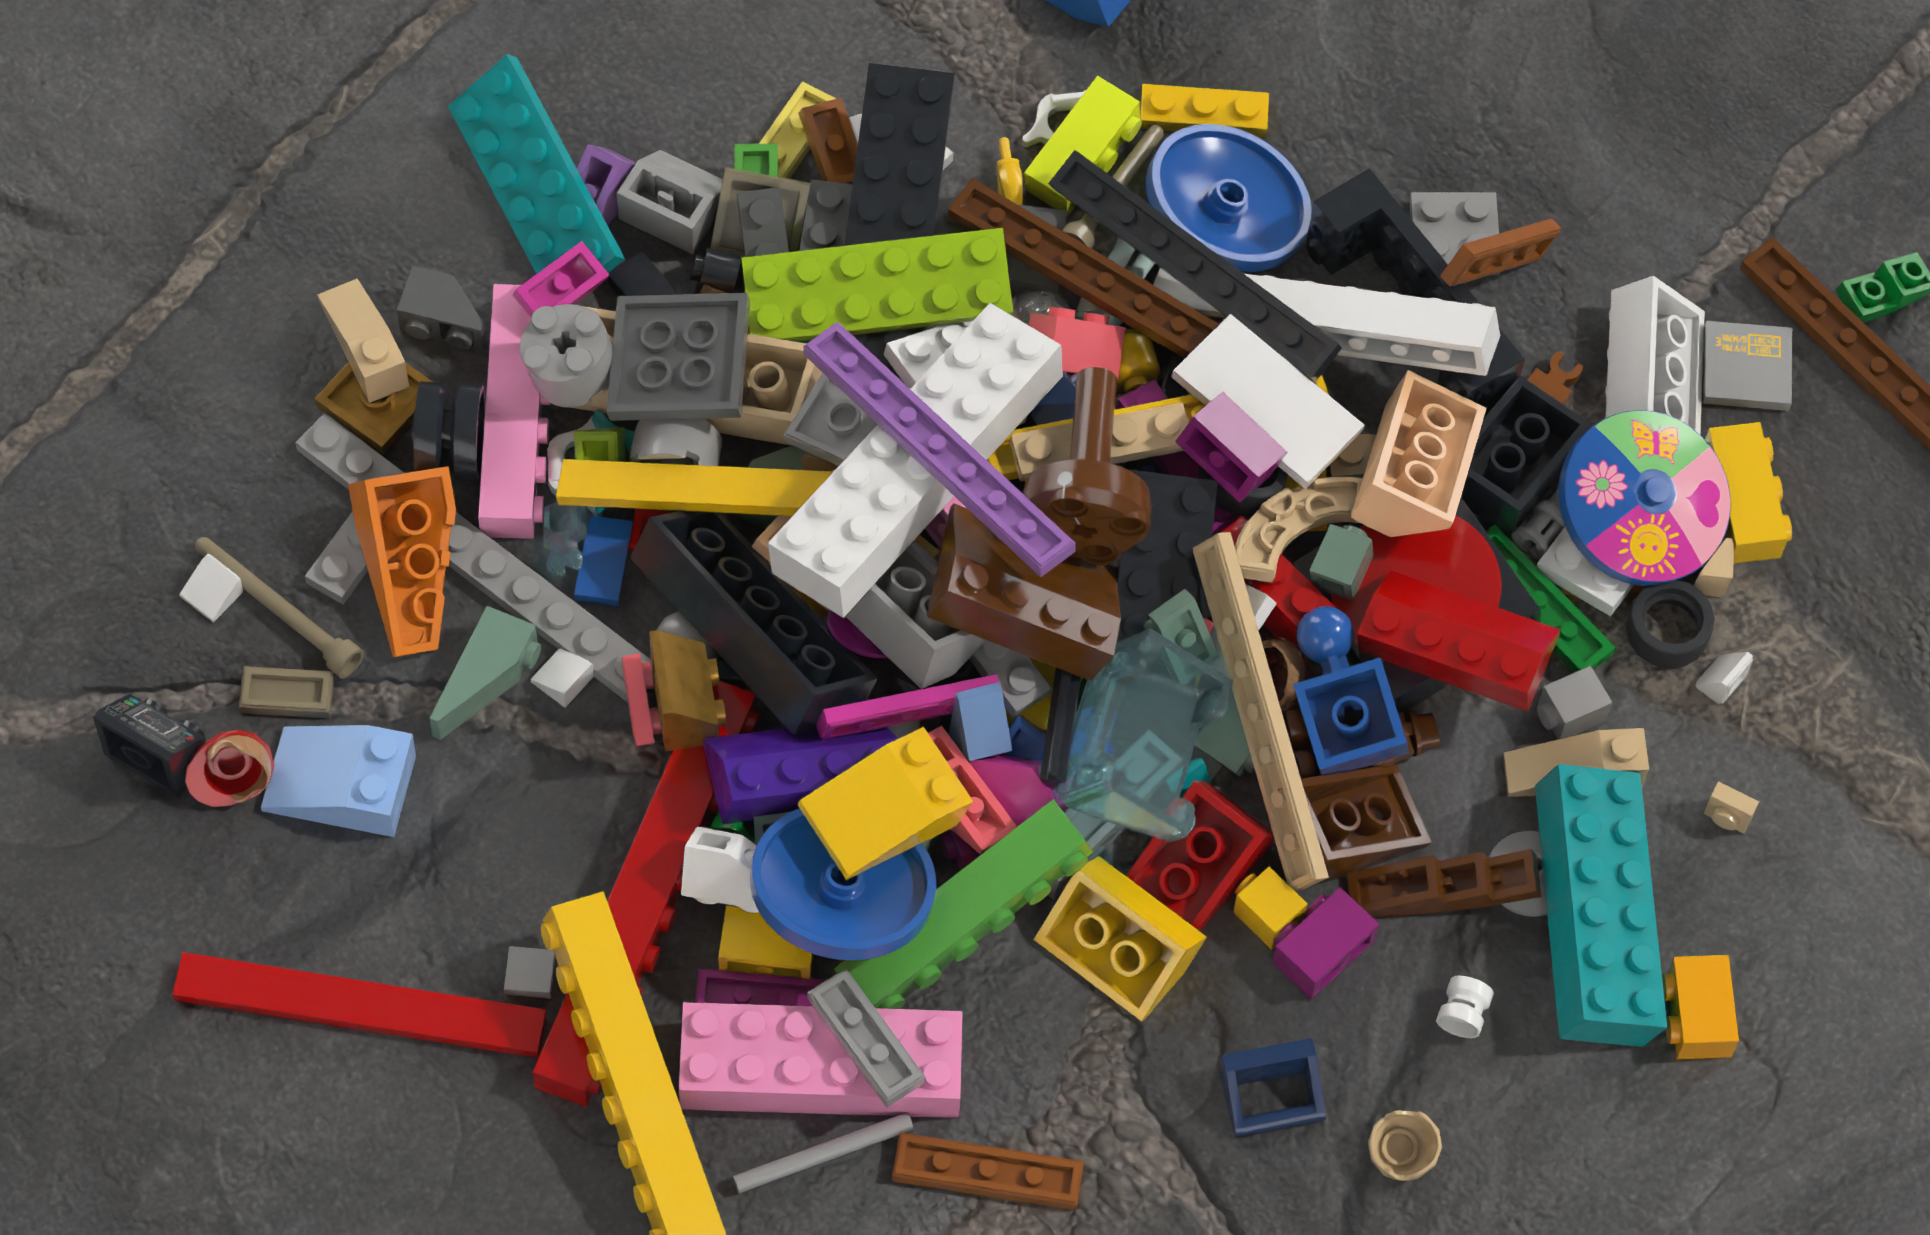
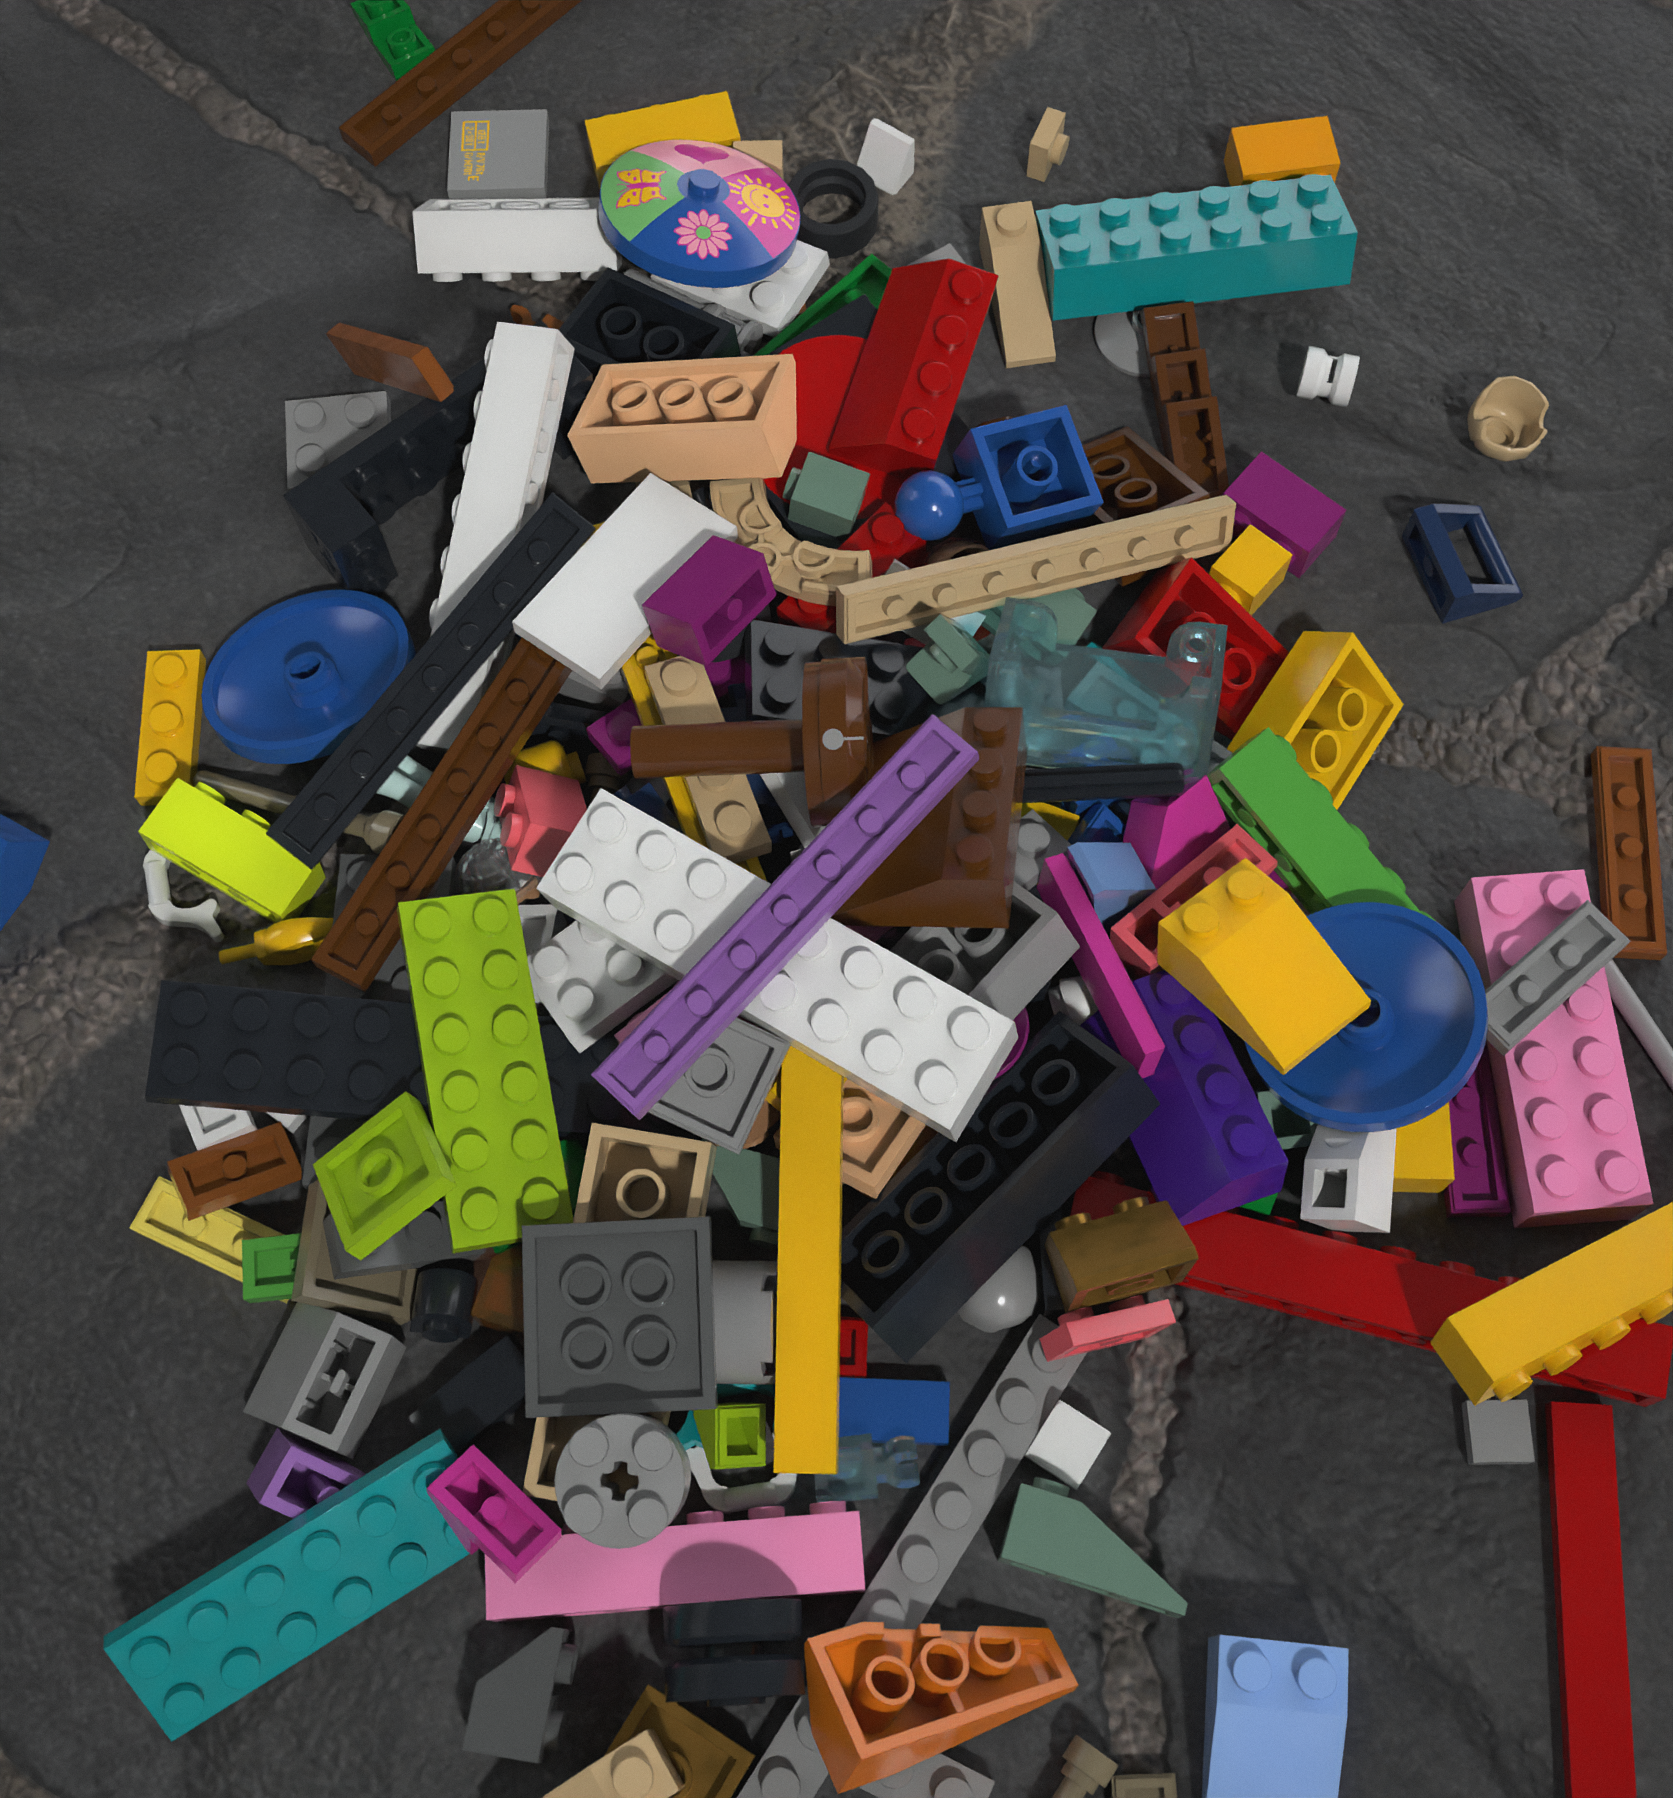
camera: 90 degrees left, 5 degrees up
(799, 214) = (383, 1175): none -> lime plate

